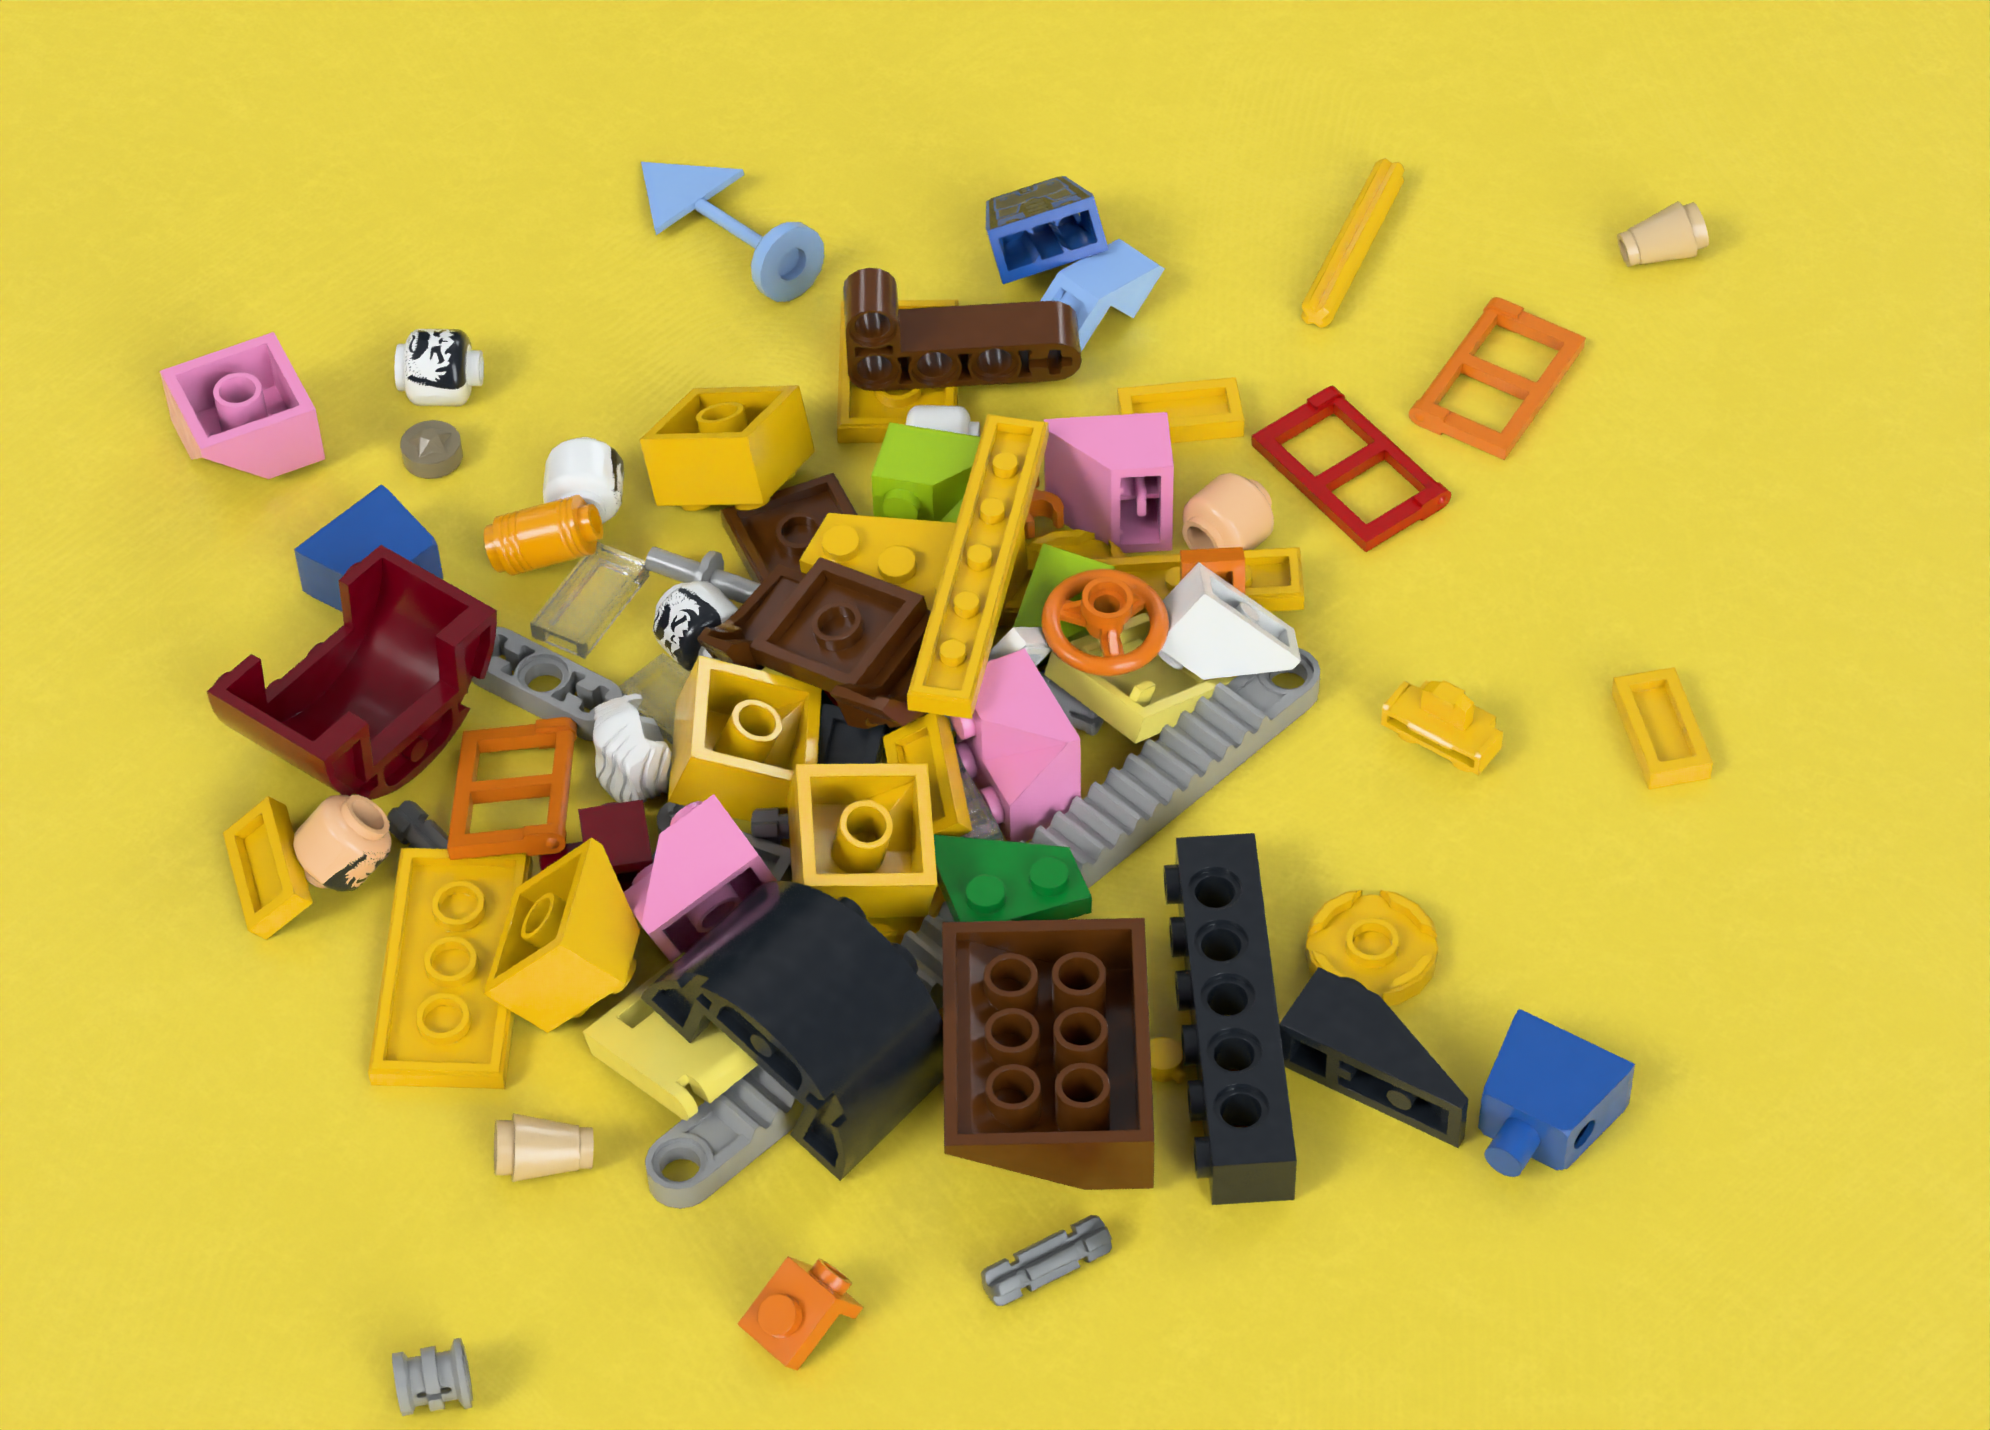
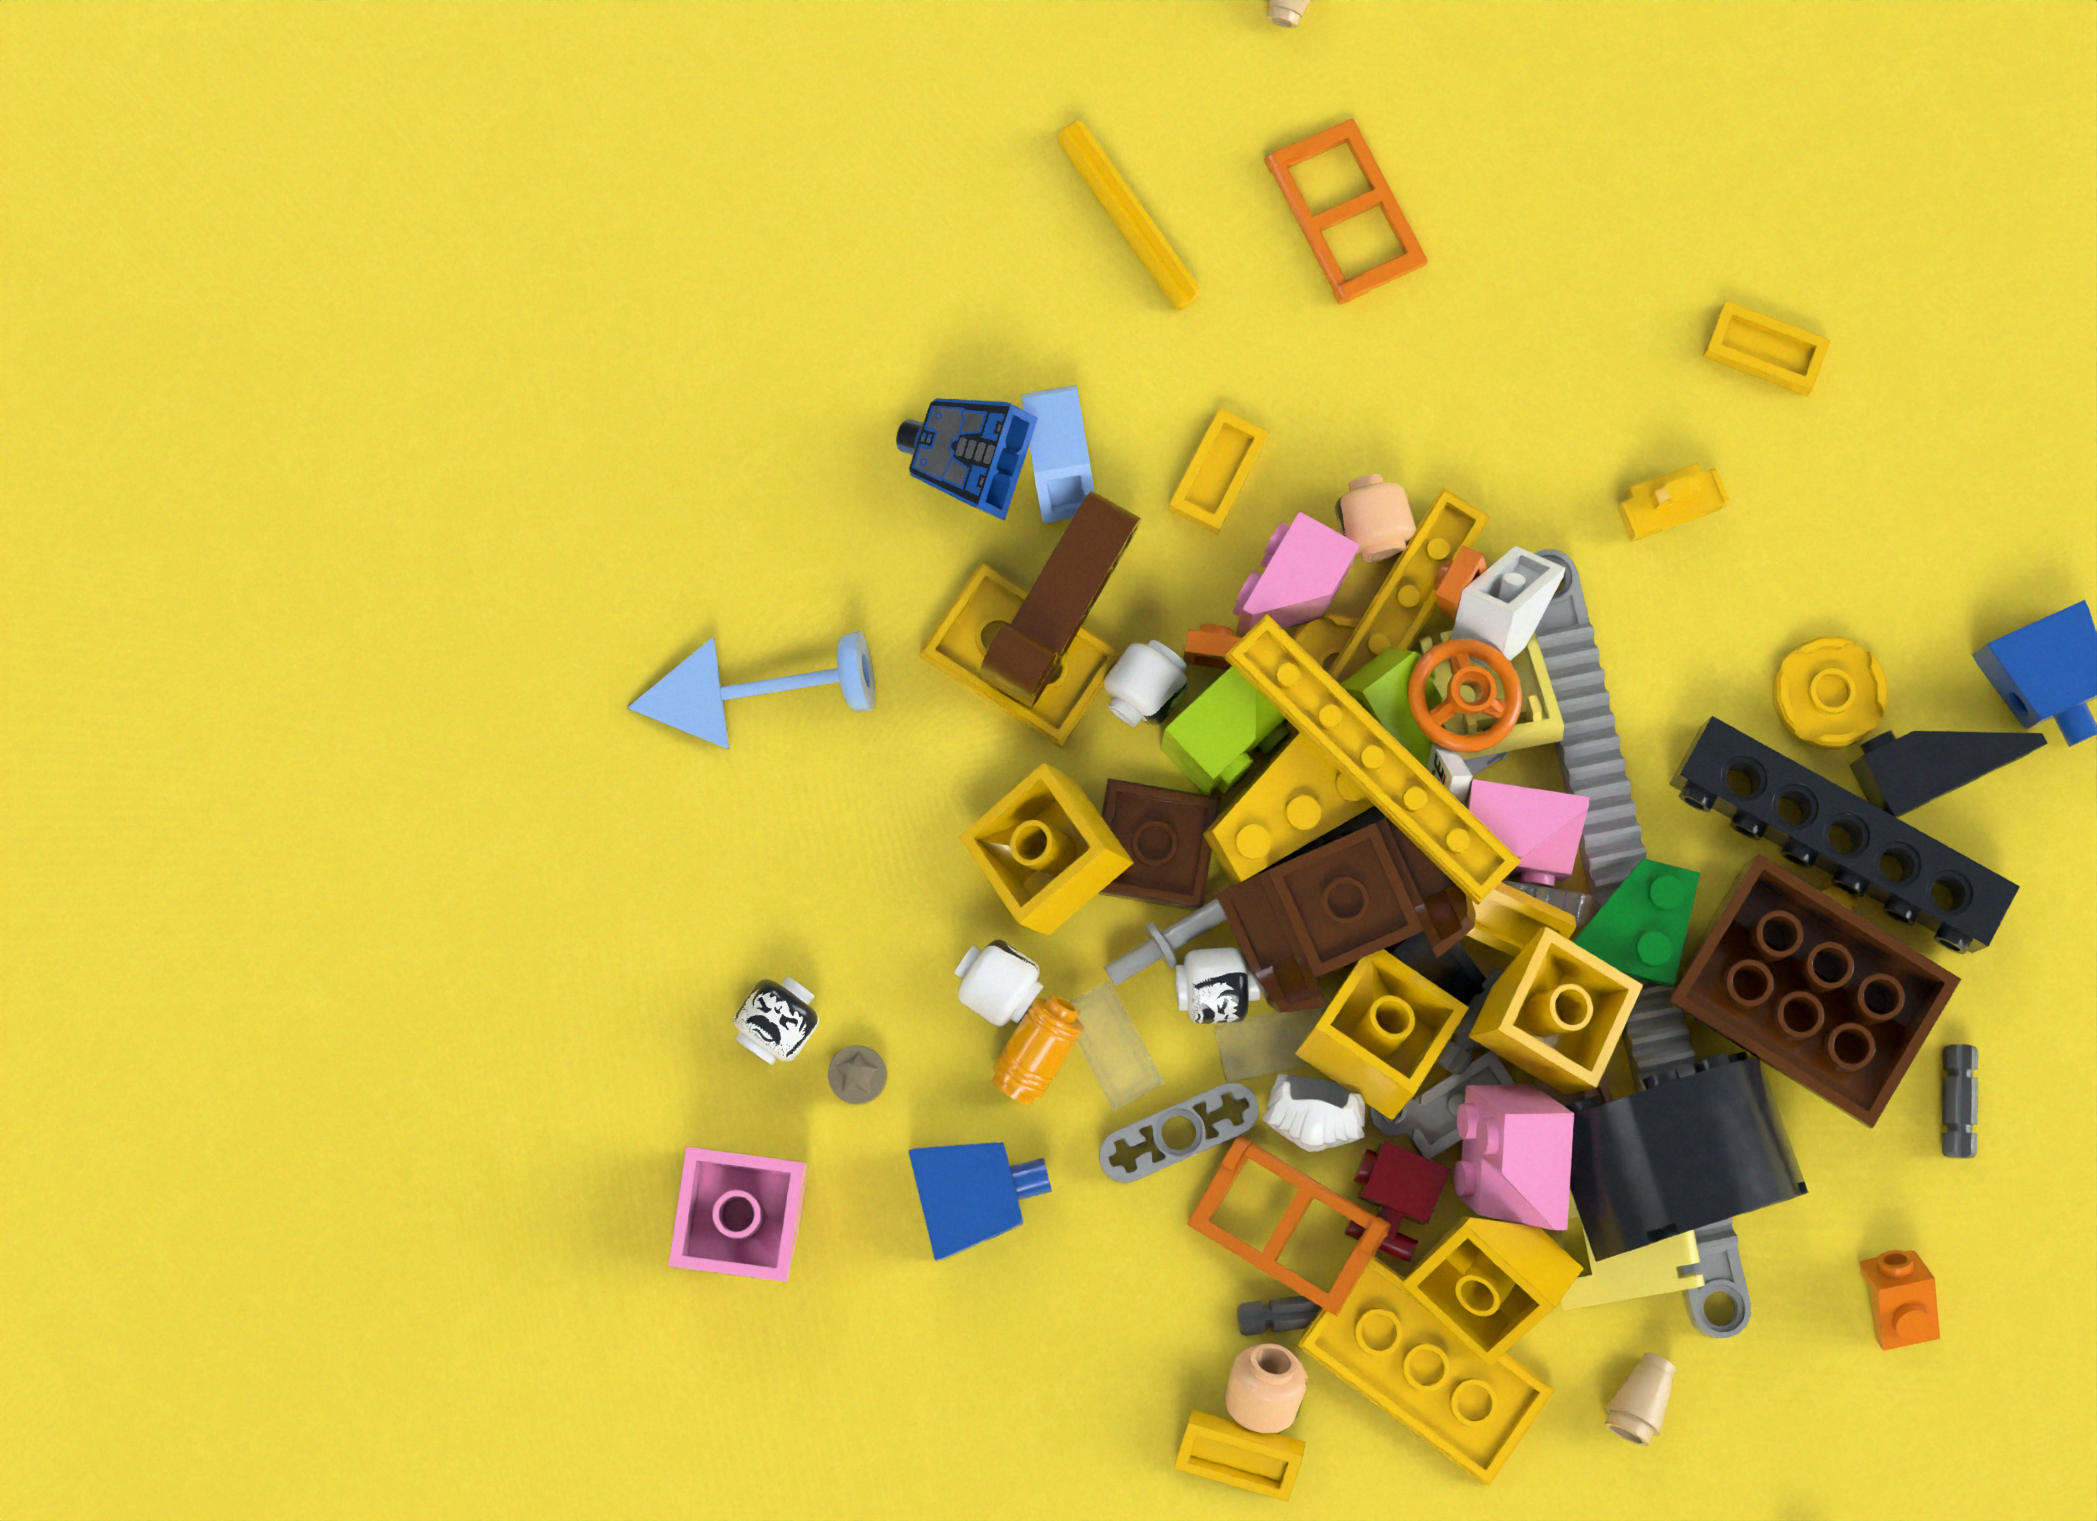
camera: 60 degrees left, 30 degrees up
(376, 693) = (1127, 1294): dark red cylinder -> none
(1319, 489) = (1365, 424): red window -> none

